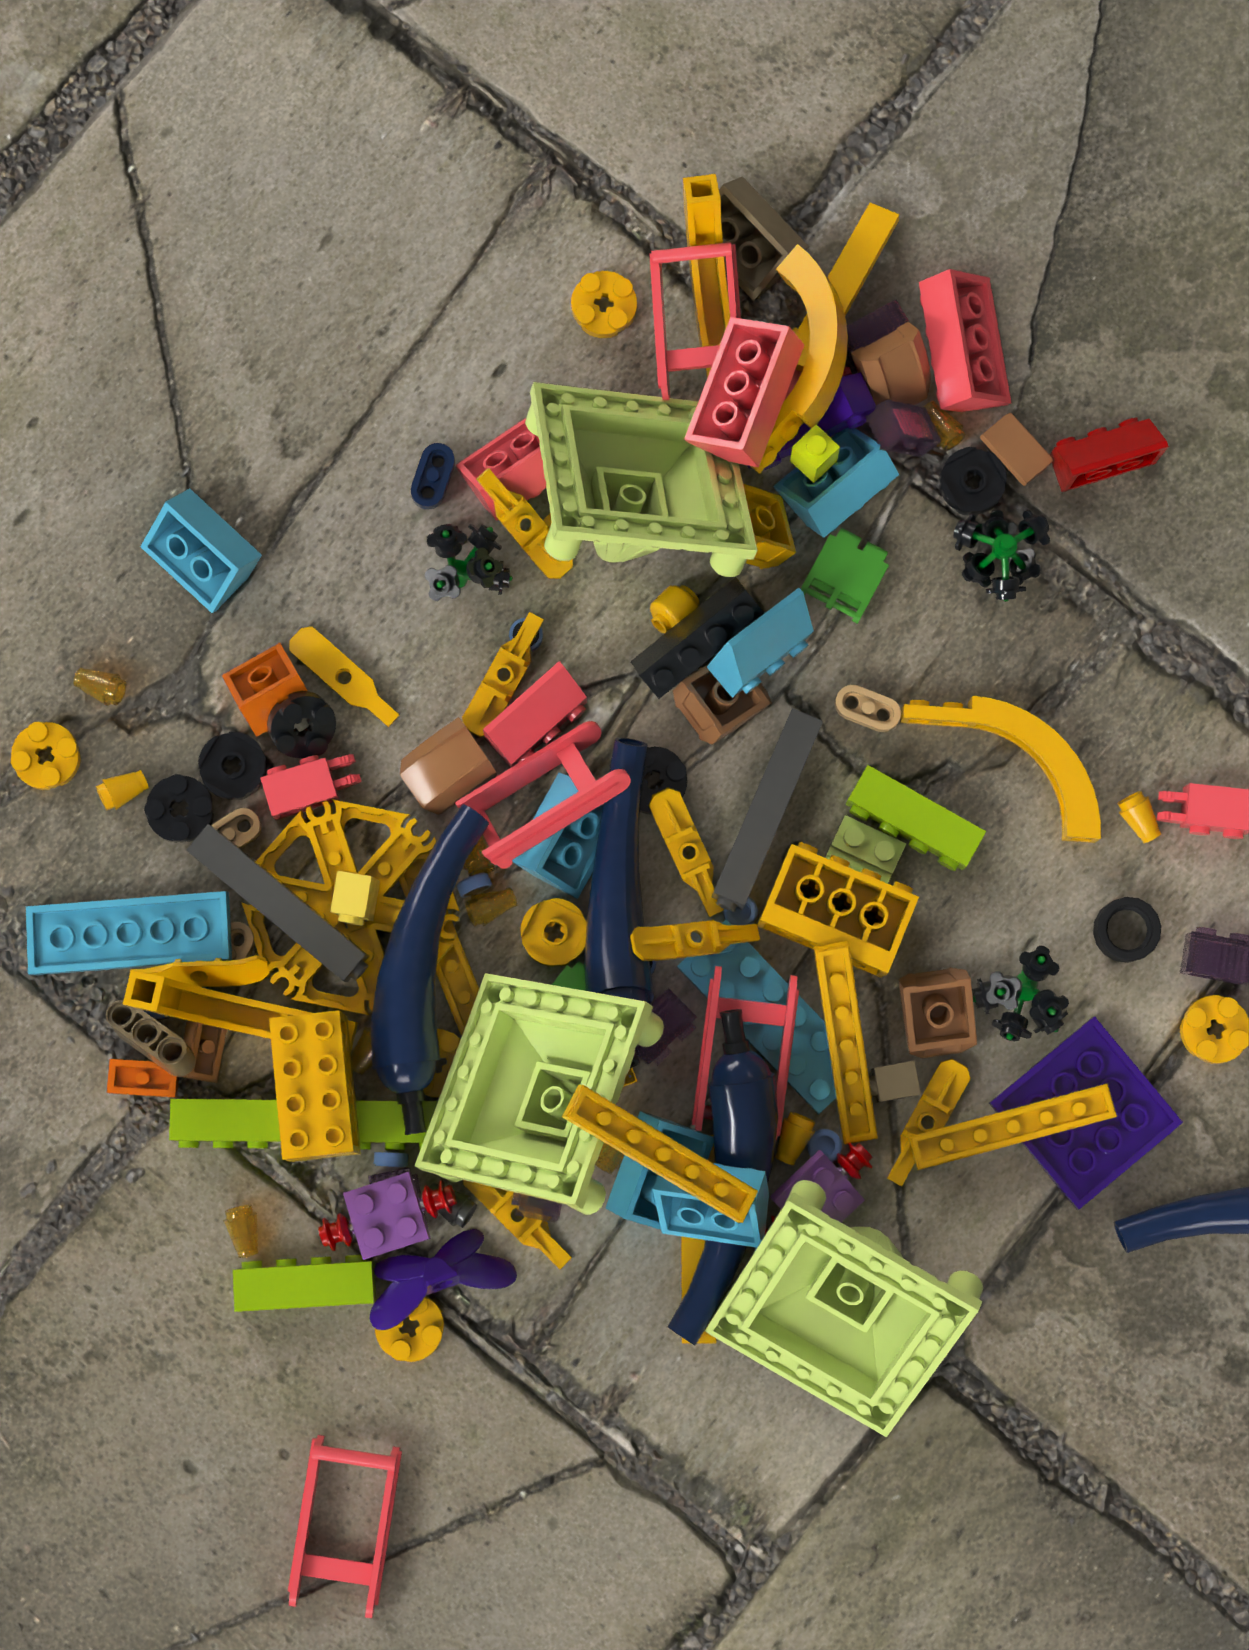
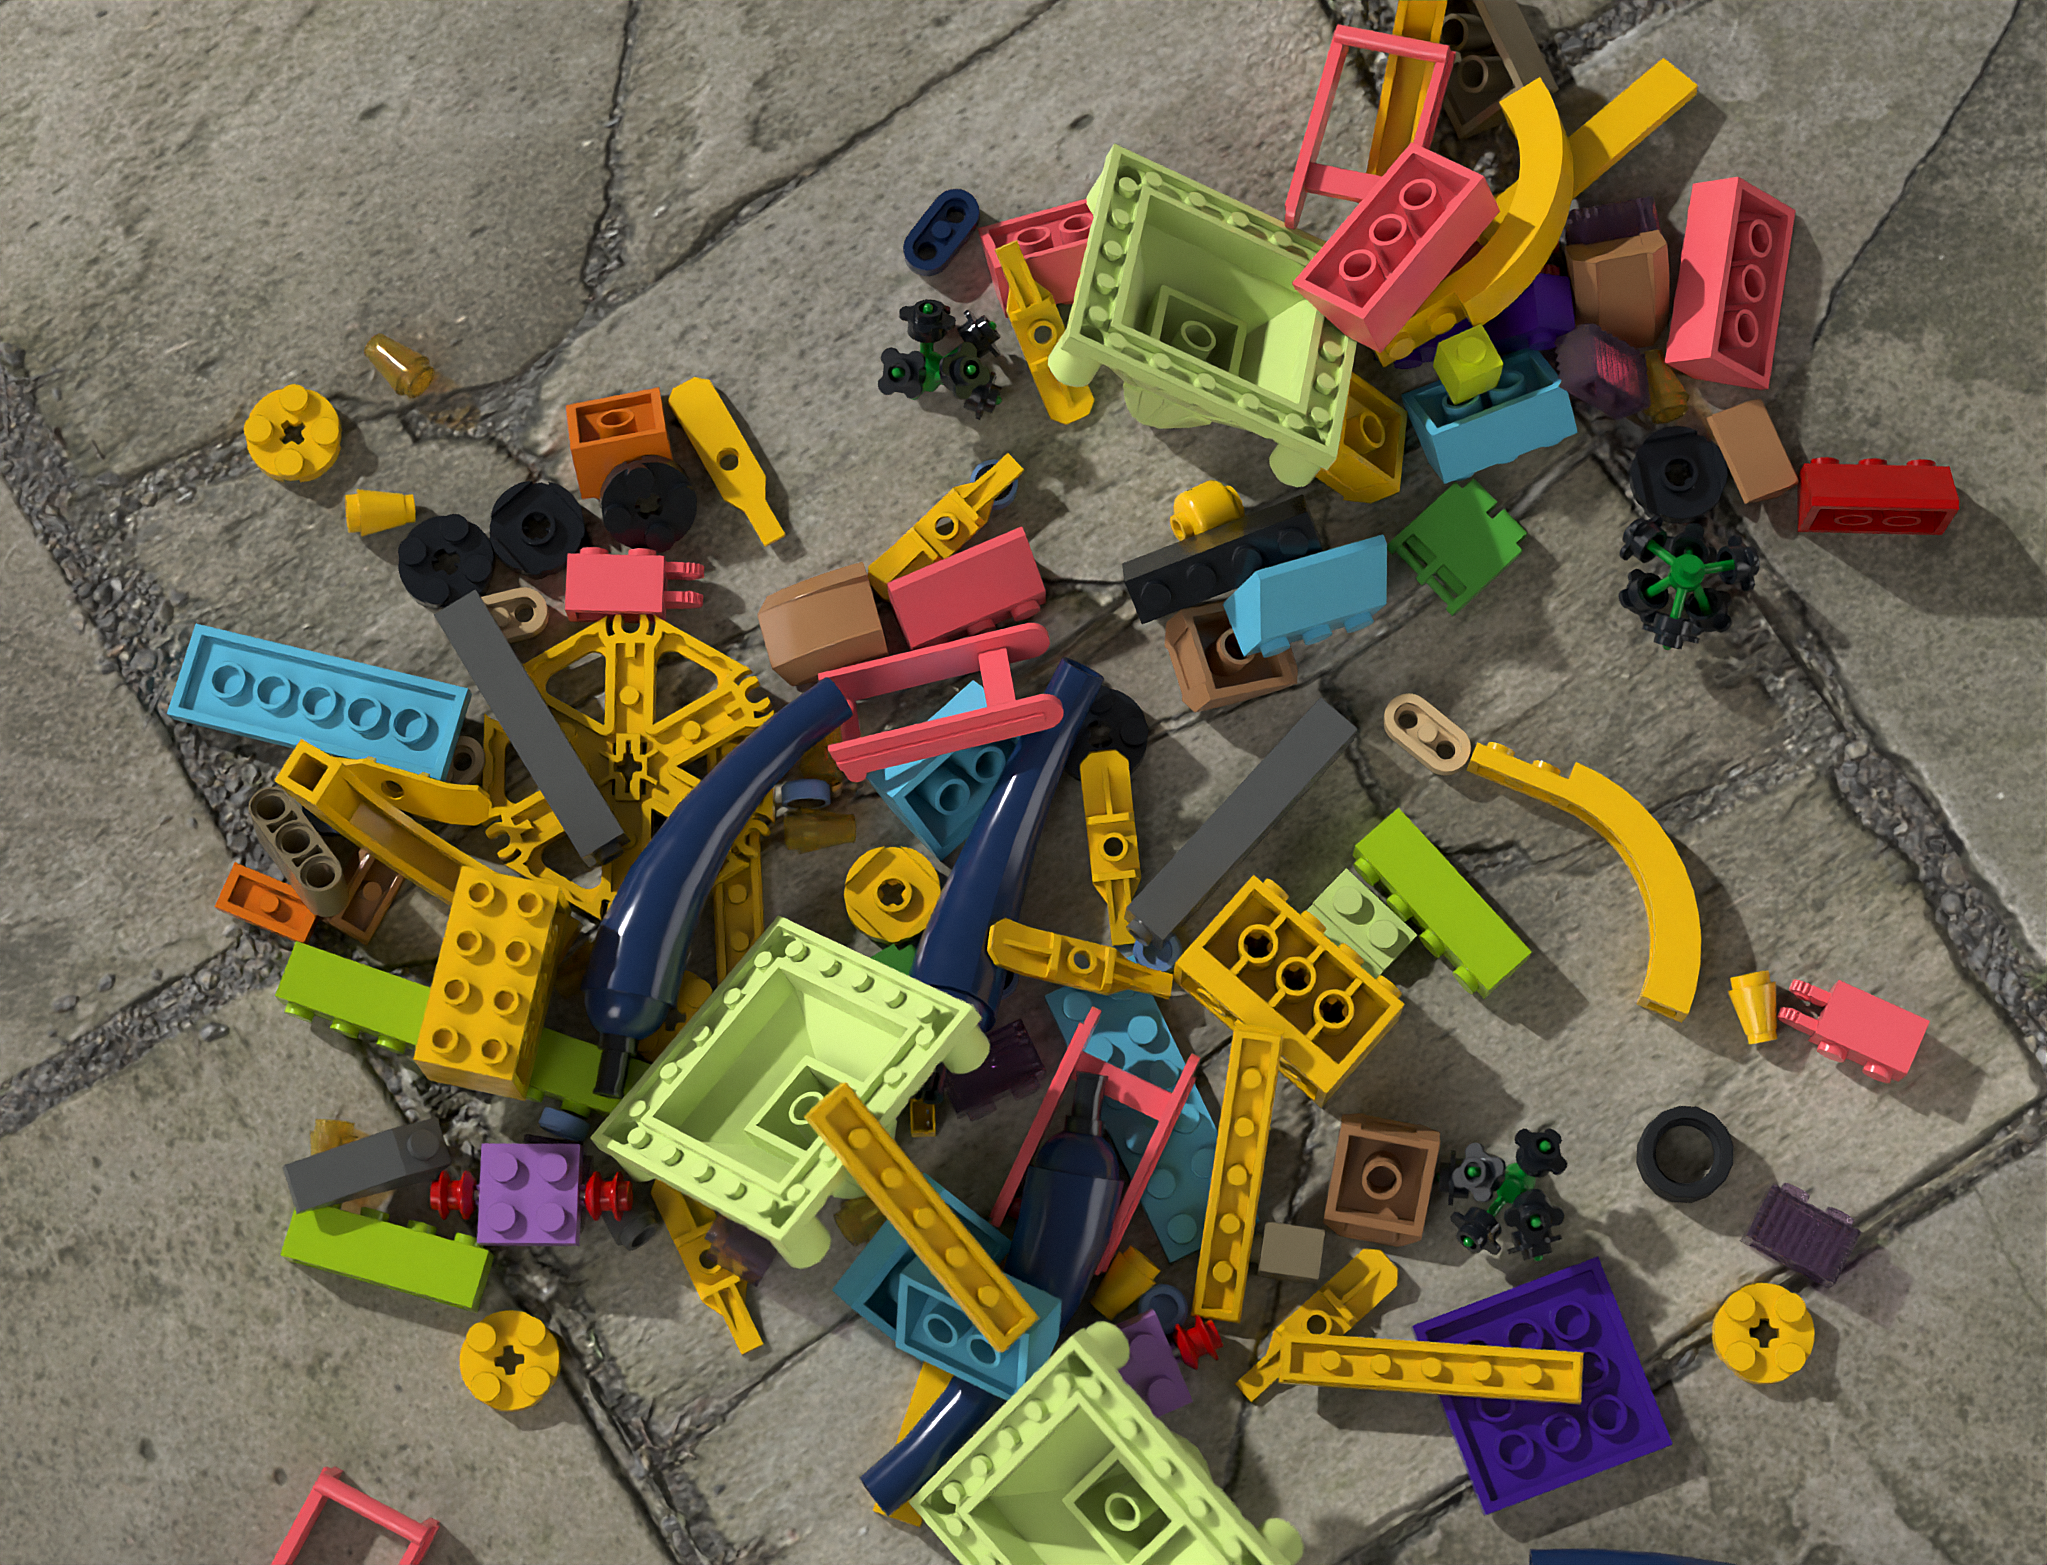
camera: 25 degrees right, 5 degrees down
(200, 549) = (595, 229): medium azure slope -> none
(271, 1233) = (368, 1166): none -> dark grey slope
(354, 897) = (636, 751): light yellow brick -> none
(419, 1276) = (548, 1294): dark purple piece -> none
(588, 314) = (1252, 52): yellow plate -> none

